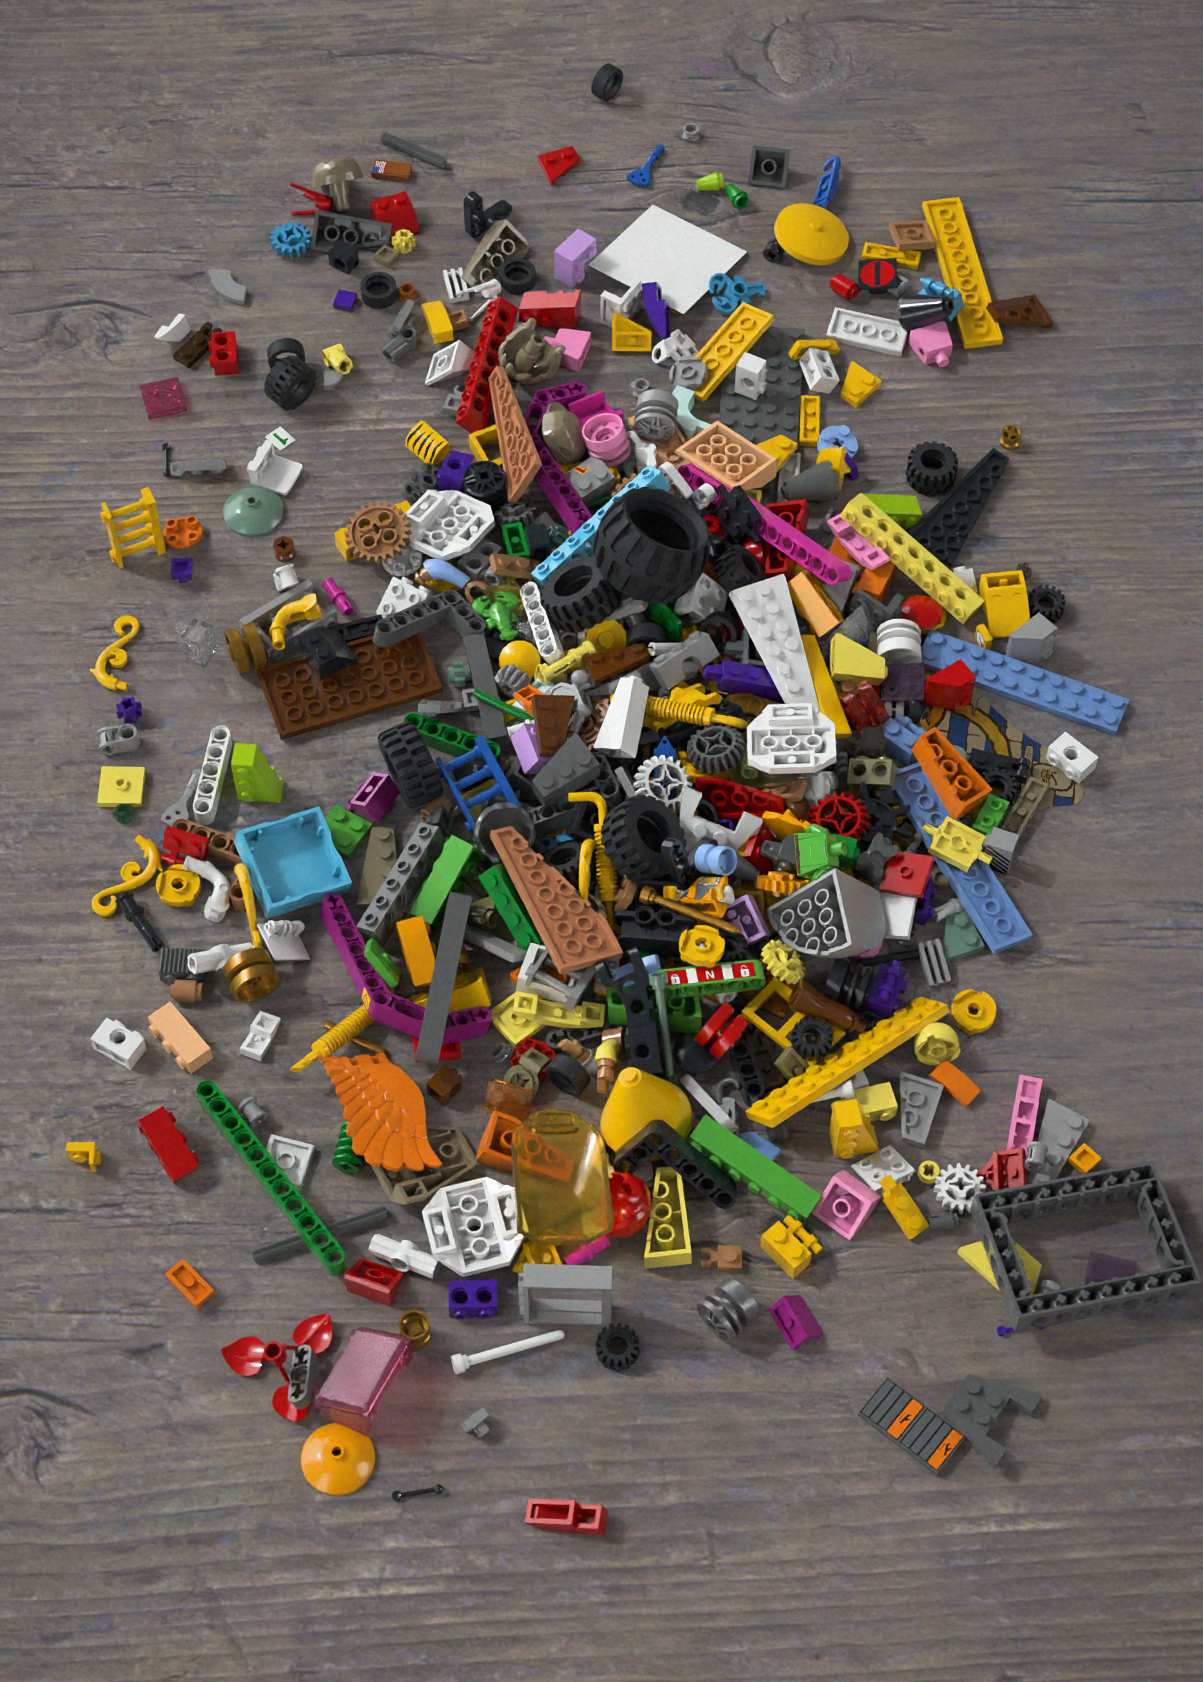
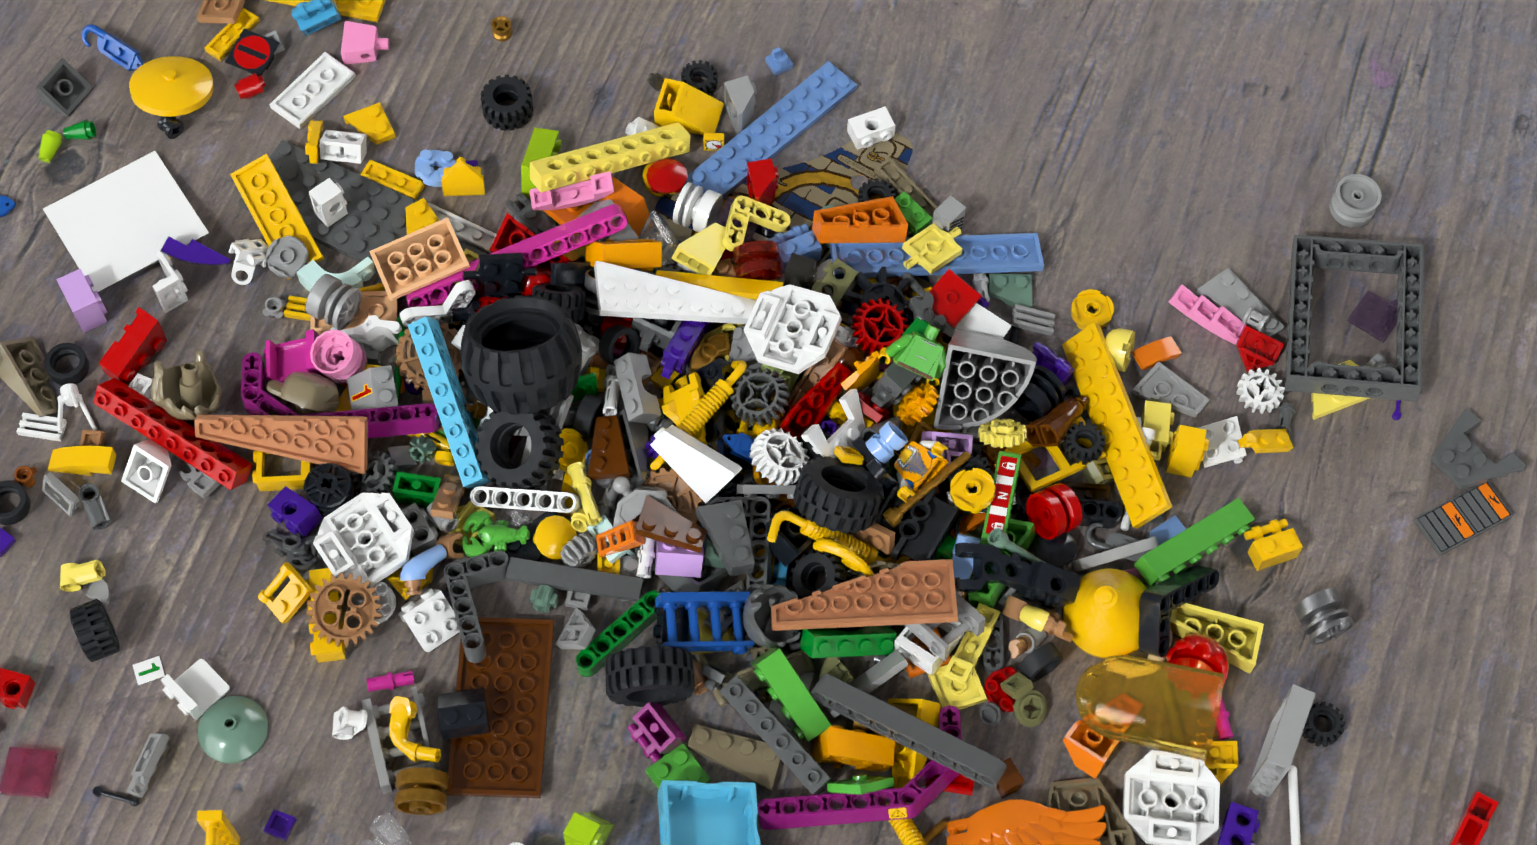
camera: 70 degrees left, 5 degrees up
(182, 532) = (232, 802): orange dish -> none
(281, 553) = (304, 718): reddish brown wheel -> none
(284, 345) = (50, 623): black tyre -> none
(357, 629) = (442, 673): black plate -> none
(375, 493) = (291, 596): none -> yellow plate
(427, 443) = (239, 527): yellow brick -> none
(501, 705) = (611, 568): green bar -> none
(508, 1099) = (1045, 727): clear orange bracket -> none
(538, 541) = (429, 463): black brick -> none
(576, 344) = (185, 344): bright pink torso -> none
(629, 335) = (207, 291): yellow wing -> none
(689, 835) = (848, 455): none -> yellow tile
(726, 1258) = (1261, 602): medium nougat plate -> none
(733, 292) = (204, 180): dark azure animal -> none
(770, 565) = (568, 272): none -> black tile
(795, 1320) = (1342, 569): magenta panel -> none
(813, 484) = (479, 202): dark grey cone -> none
(846, 1204) = (1247, 480): bright pink slope -> none
(877, 611) = (656, 200): dark grey bracket -> none
(906, 679) = (744, 215): none -> light yellow beam
(923, 310) = (328, 29): black cone -> none
(928, 1165) = (1235, 403): light yellow bush -> none
(954, 516) = (563, 104): black wing -> none
(984, 760) = (848, 189): black plate -> none
(1084, 1159) = (1264, 286): light orange plate -> none
(1105, 661) = (778, 61): none -> medium blue tile

